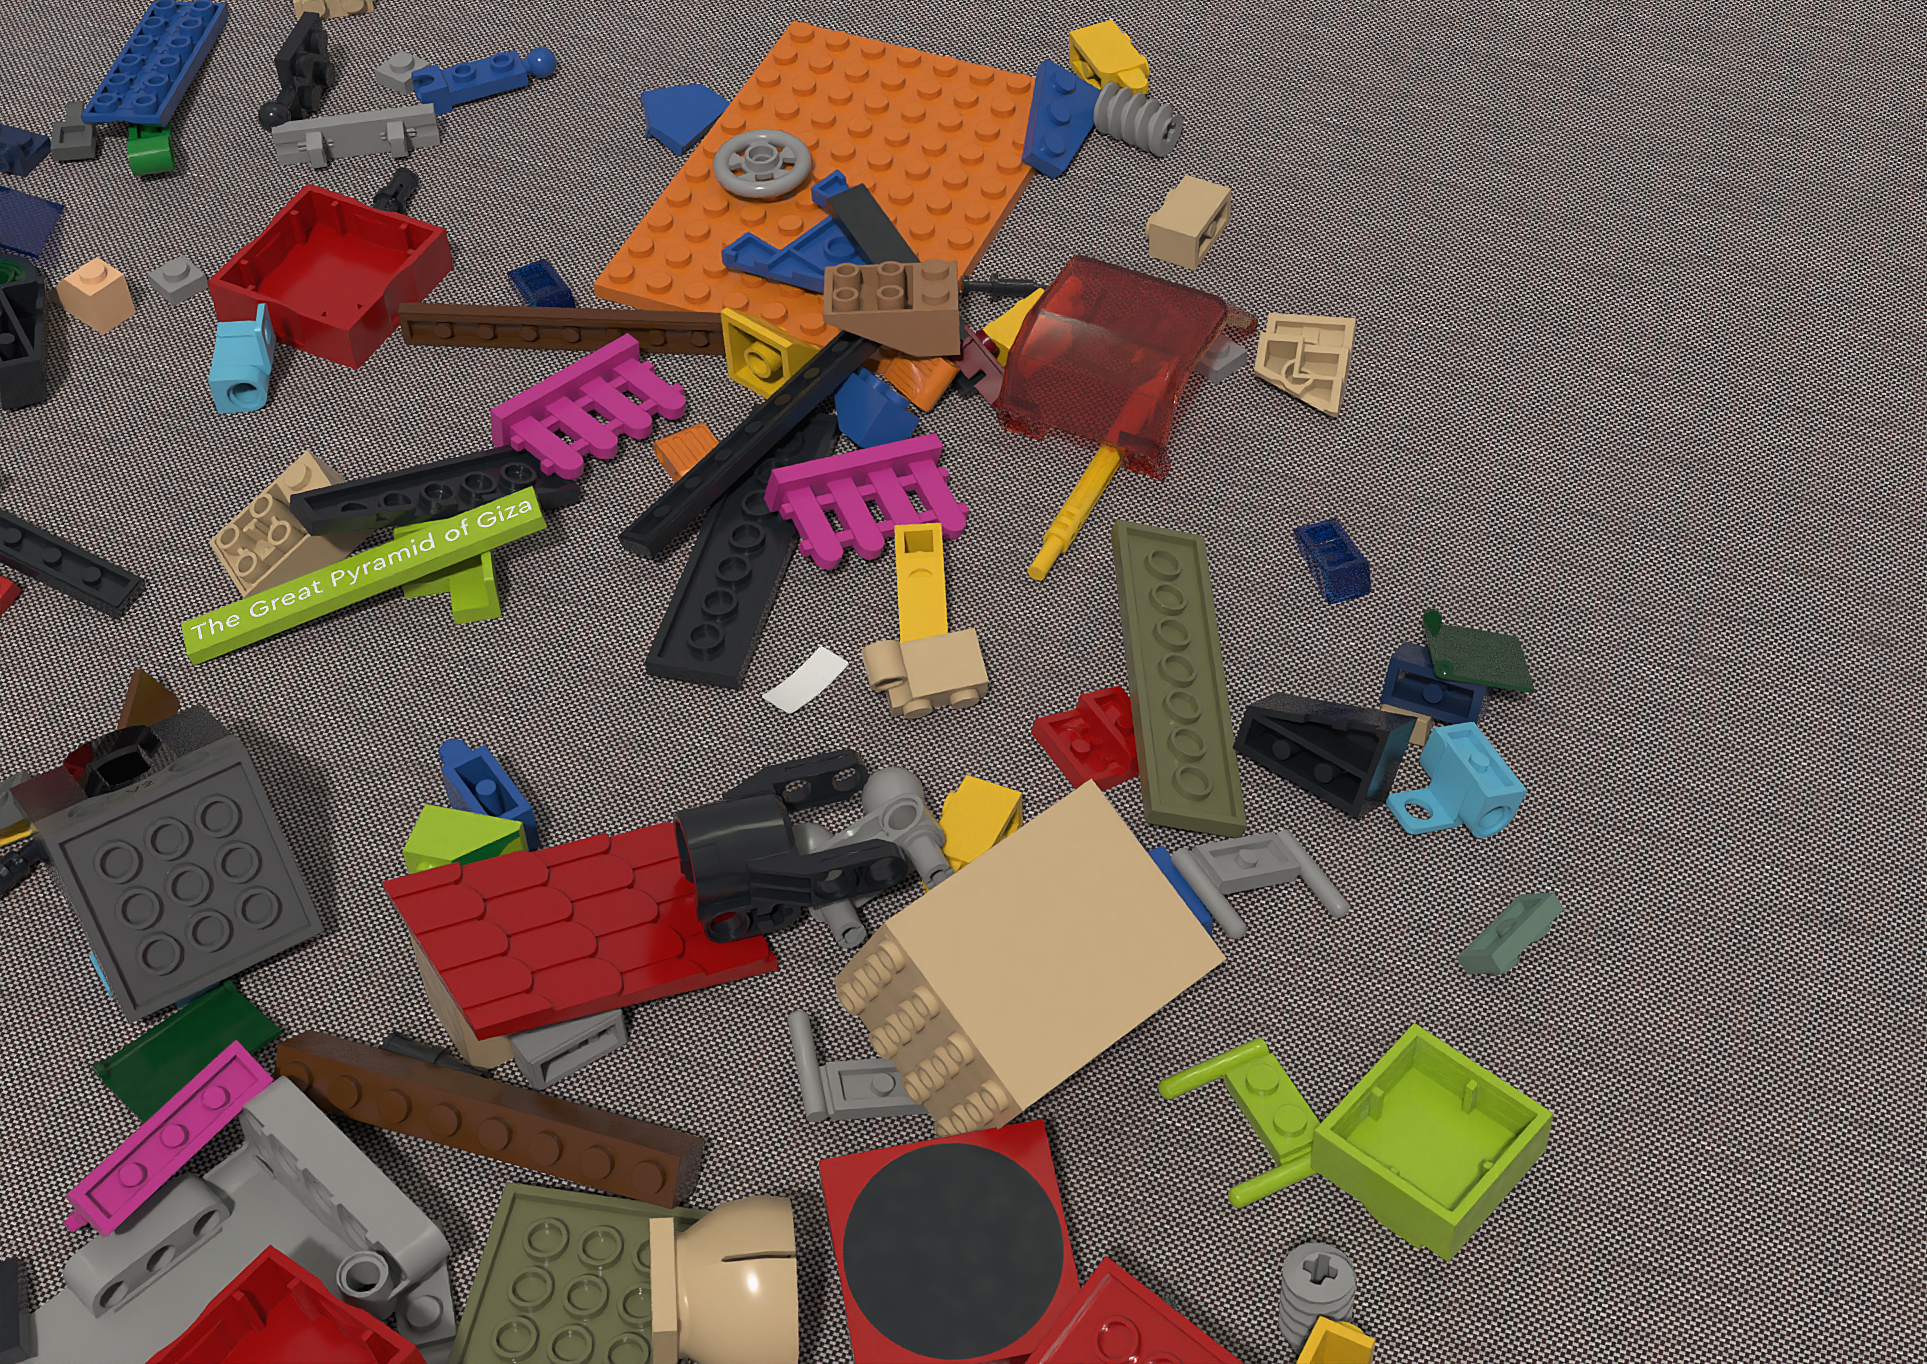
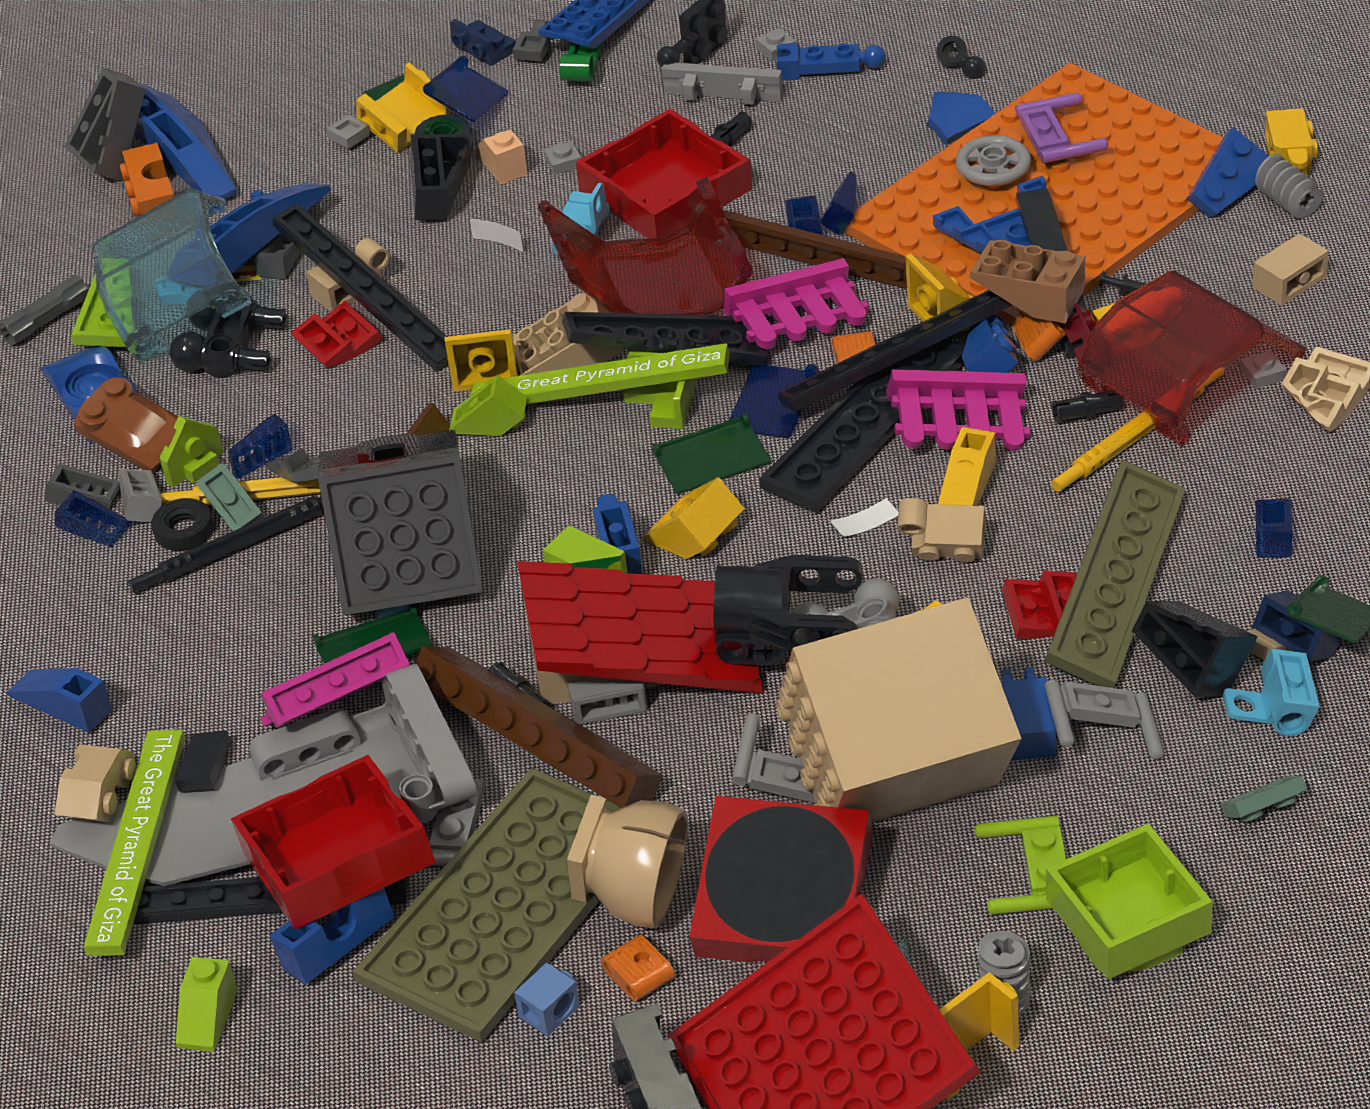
camera: 25 degrees right, 5 degrees down
(129, 404) = (496, 232): none -> white sticker
(183, 587) = (480, 357): none -> yellow slope
(223, 658) = (490, 410): none -> lime slope
(398, 409) = (654, 275): none -> clear red windscreen
(557, 644) = (710, 454): none -> dark green piece
(582, 744) = (696, 520): none -> yellow slope
(588, 263) = (842, 206): none -> clear blue slope
(592, 556) = (762, 403): none -> clear blue piece
(672, 50) = (972, 67): none -> black plate
(814, 114) = (1046, 132): none -> medium lavender plate
(1024, 456) = (1086, 405): none -> black pin

